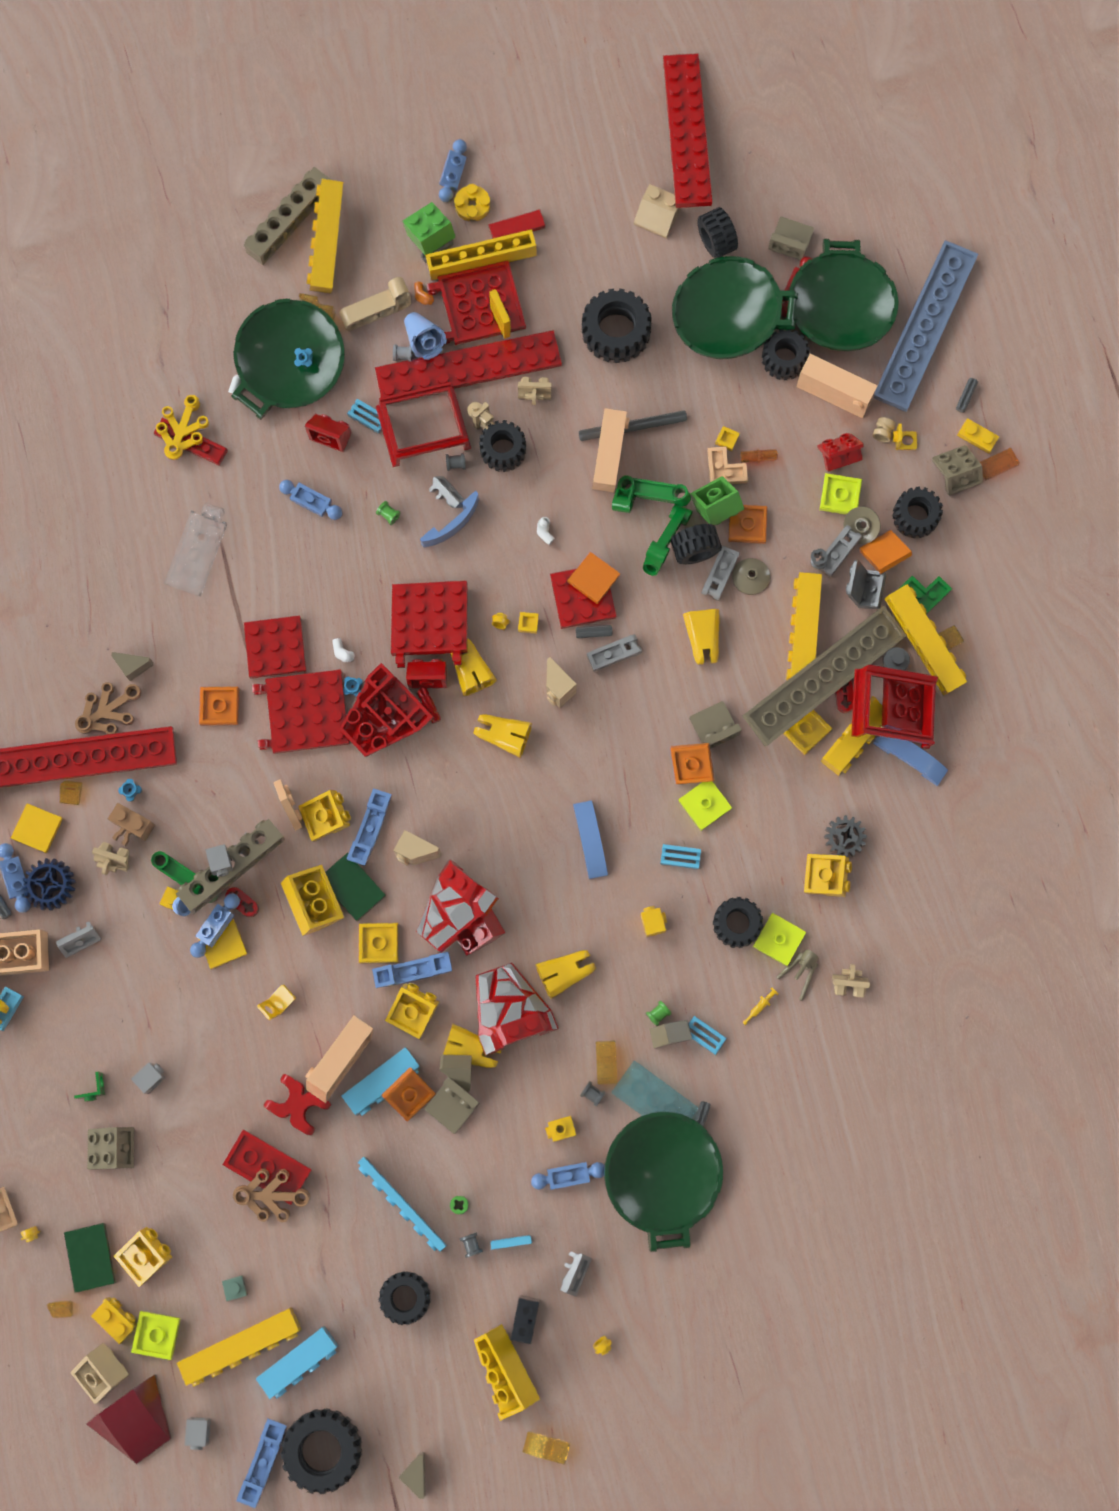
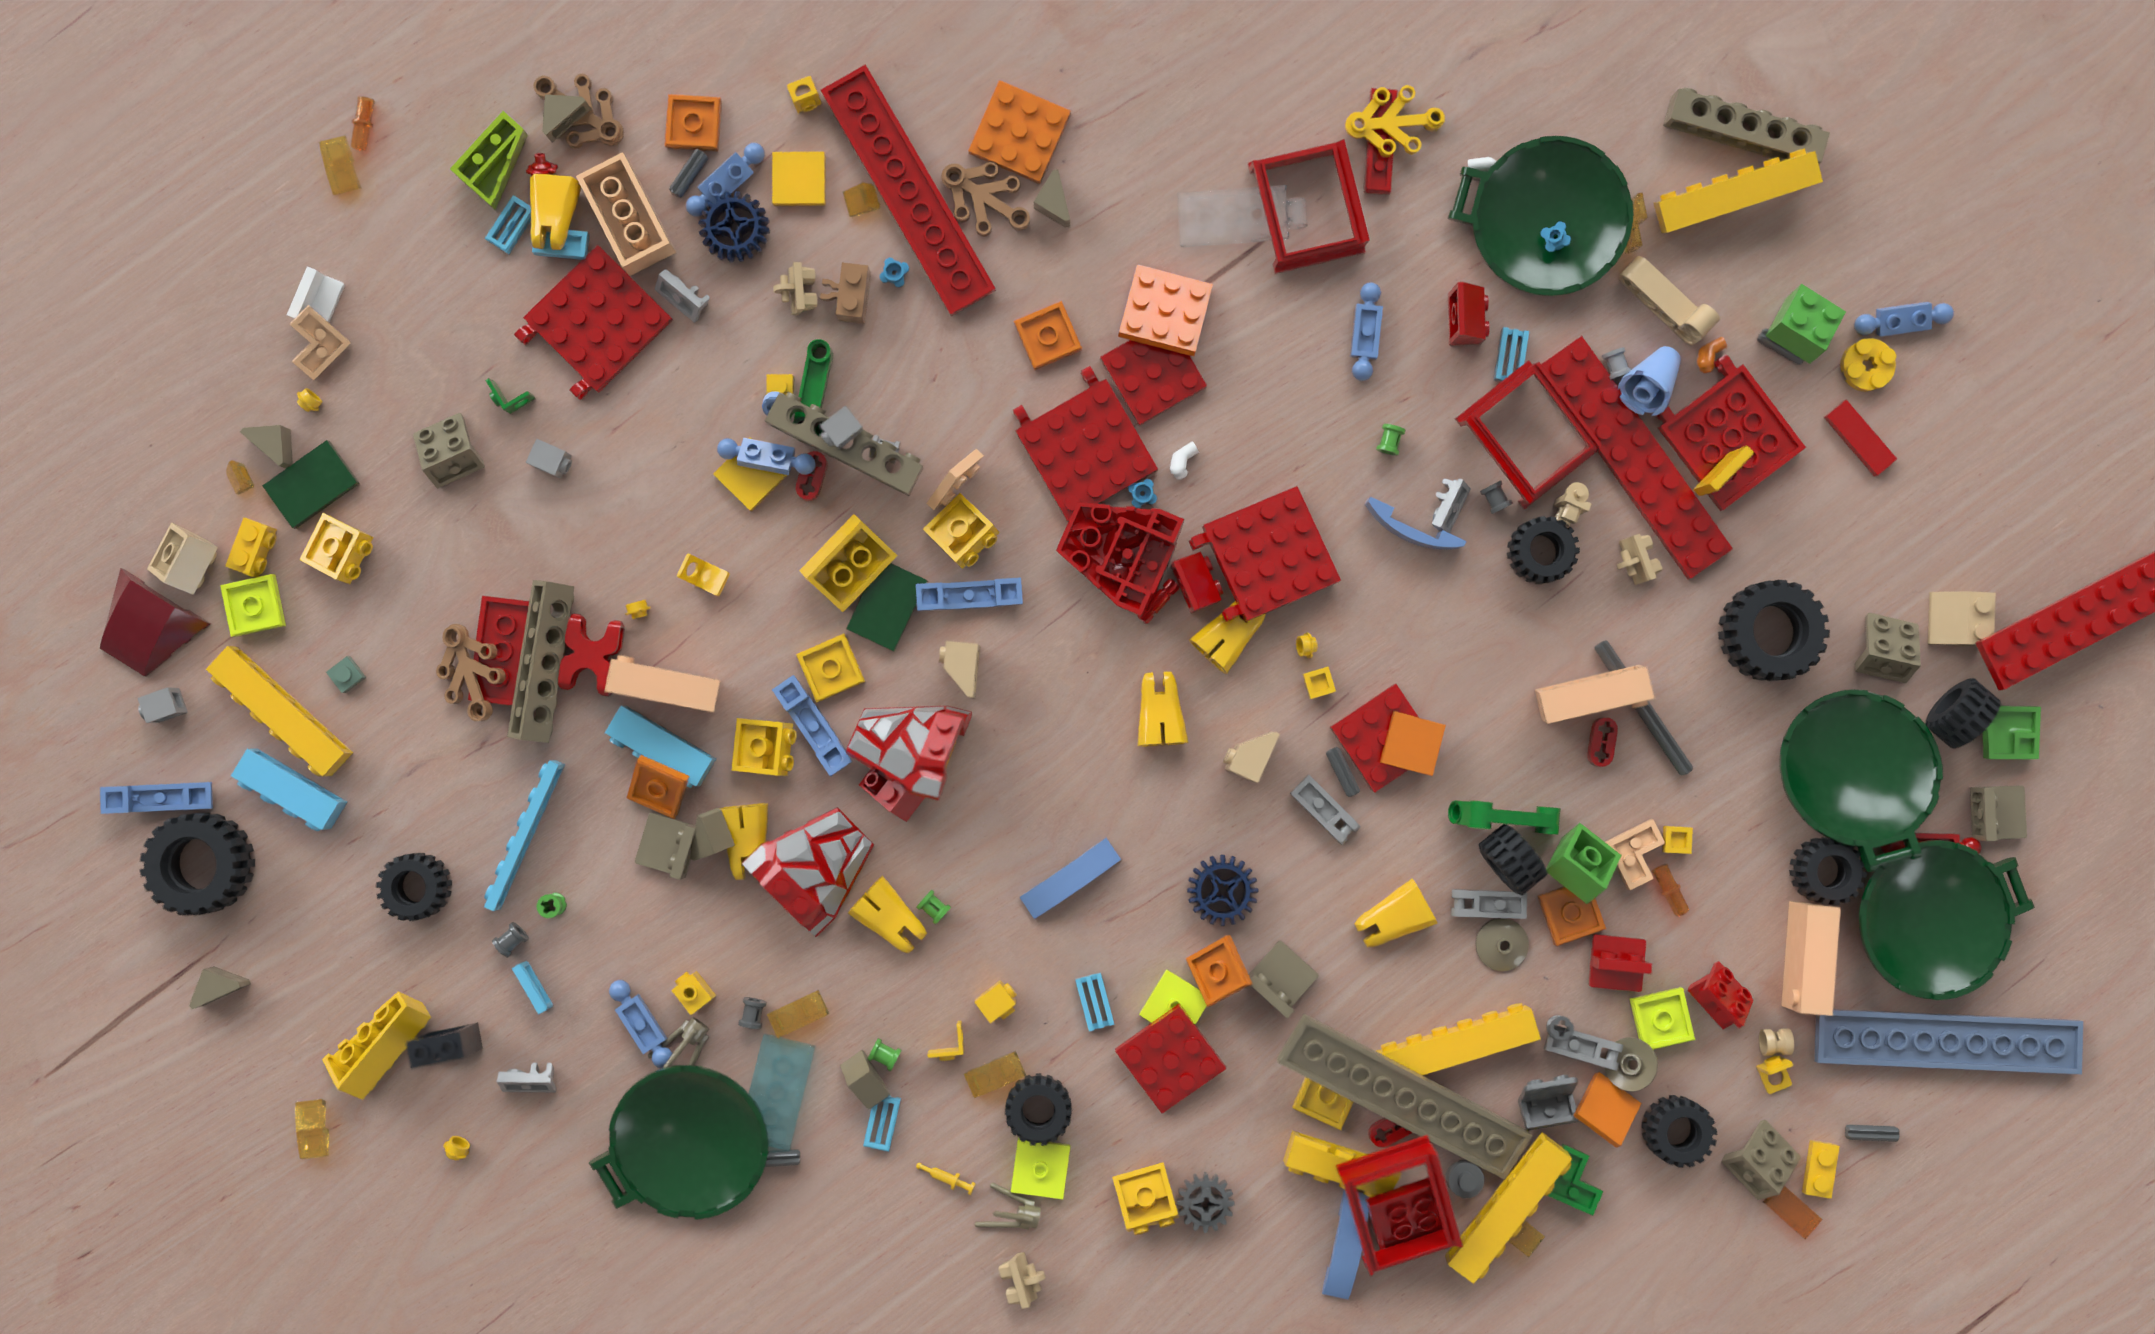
camera: 55 degrees right, 10 degrees up
(46, 1271) = (273, 441): none -> dark tan slope
(68, 1007) = (595, 320): none -> red plate
(75, 669) = (1019, 131): none -> orange plate
(237, 621) = (1165, 310): none -> plate
(247, 504) = (1322, 253): none -> red piece
(280, 1059) = (637, 609): none -> yellow plate
(286, 1140) = (530, 669): none -> dark tan brick
(482, 253) = (1799, 409): yellow brick -> none
(543, 530) = (1451, 649): white arm -> none
(571, 938) = (932, 912): none -> bright green bush
(589, 1140) = (694, 1032): none -> dark tan plant
(636, 724) = (1212, 896): none -> dark blue gear
(646, 456) = (1596, 740): none -> red beam
(647, 489) = (1561, 764): green piece -> none
(660, 260) = (1890, 648): none -> dark tan bracket
(676, 968) = (949, 1053): none -> yellow bracket
(702, 943) = (994, 1074): none -> clear yellow slope
(739, 820) = (1170, 1058): none -> red plate
(744, 209) = (2013, 733): none -> bright green plate
(792, 507) = (1618, 963): none -> red bracket

